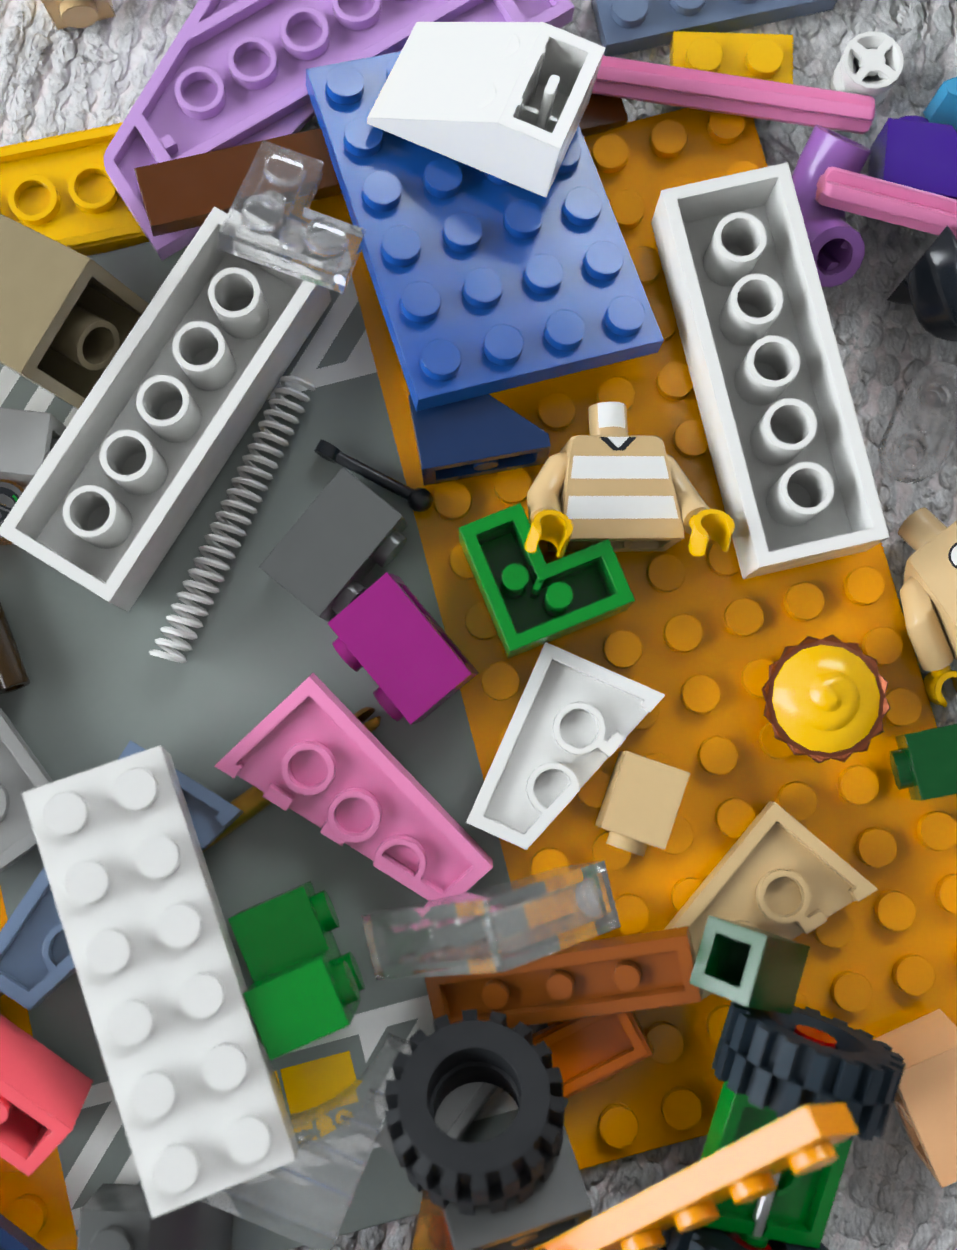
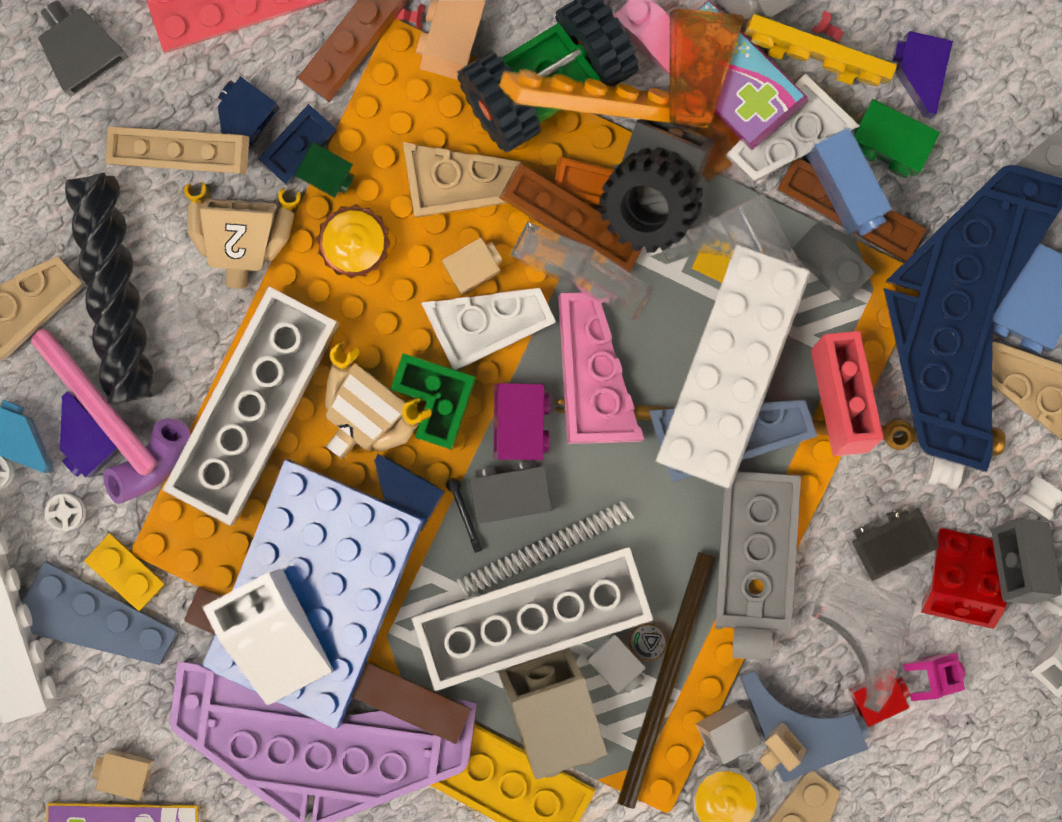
camera: 145 degrees left, 5 degrees up
(278, 230) = (416, 656): clear plate -> none
(297, 972) = (681, 322): green brick -> none
(734, 95) = (144, 556): bright pink axle -> none
(749, 965) = (487, 161): dark green brick -> none

